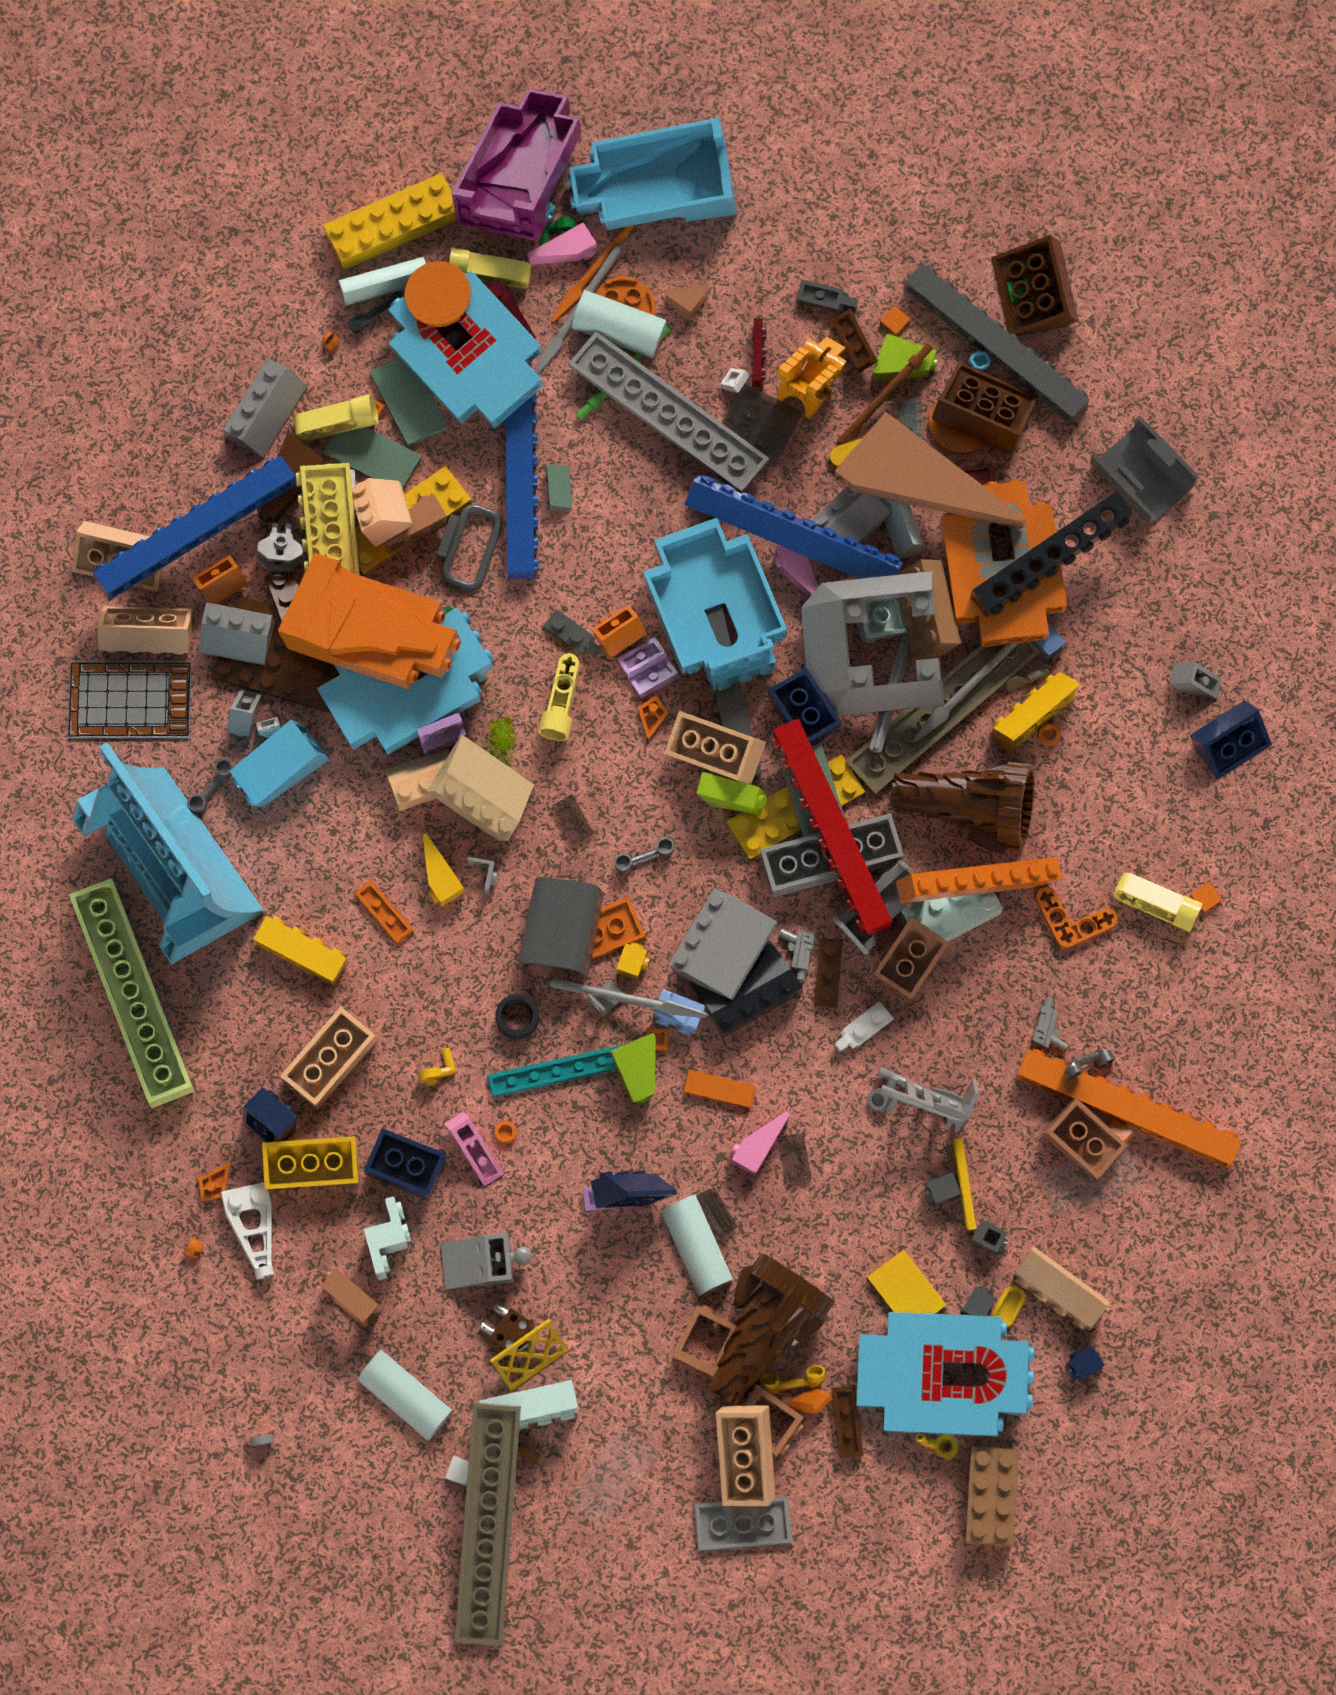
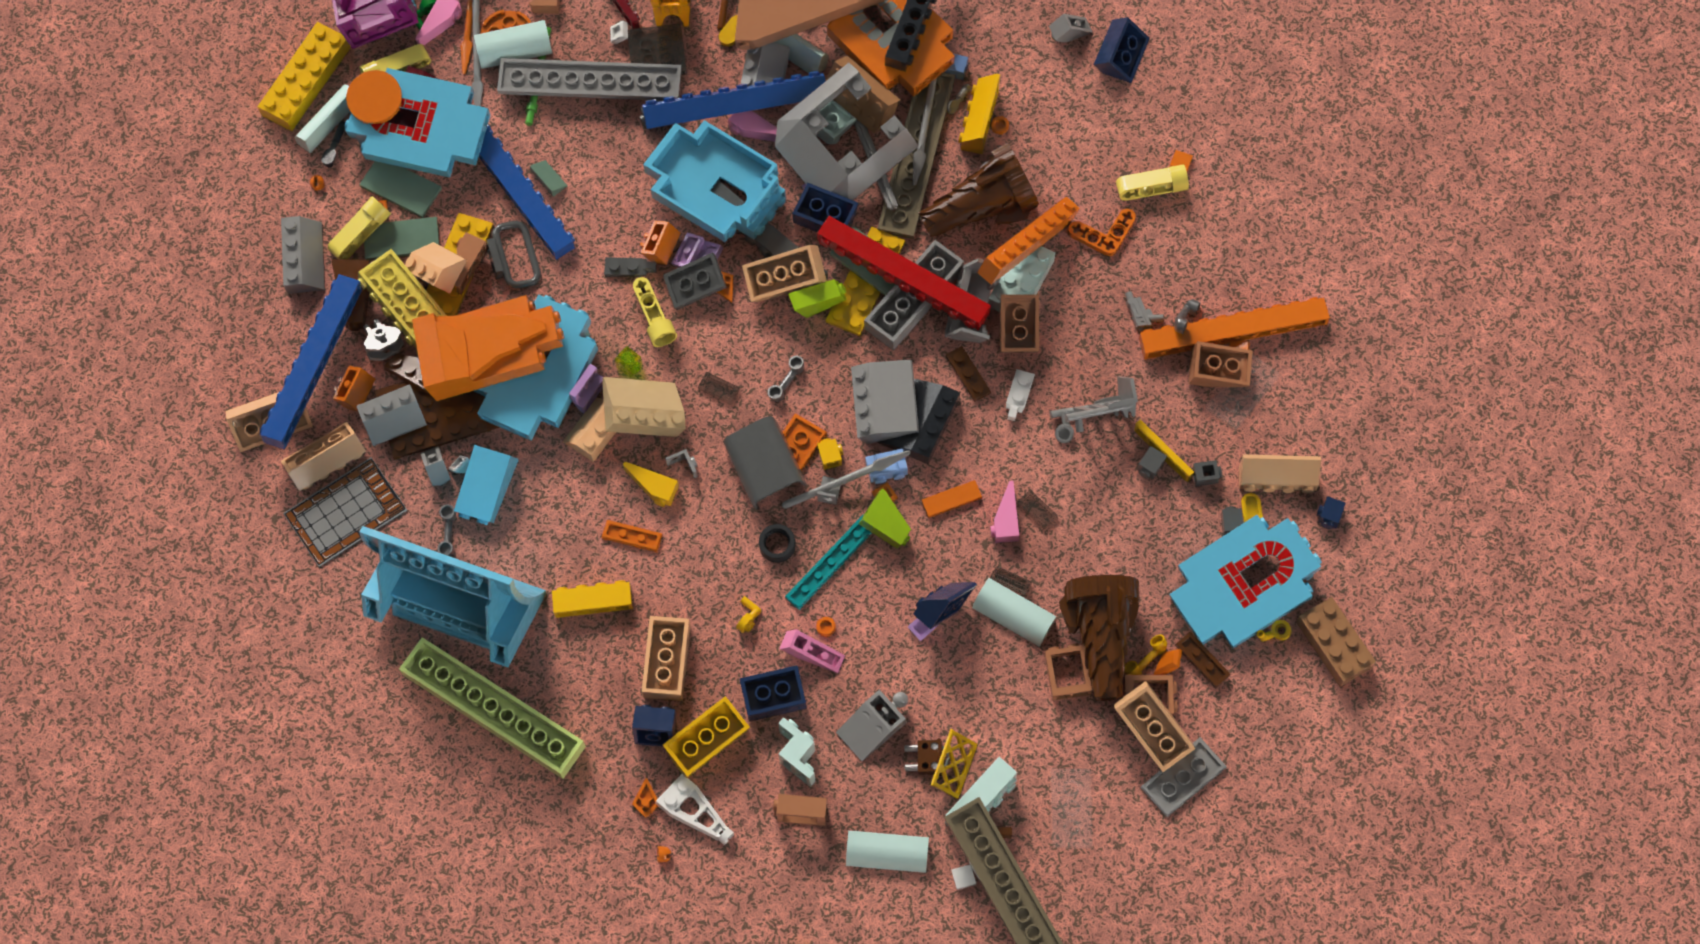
camera: 30 degrees left, 5 degrees down
(624, 694) = (694, 281): none -> dark grey plate
(802, 946) = (938, 368): light grey piece -> none
(905, 1287) = (1173, 544): yellow tile -> none

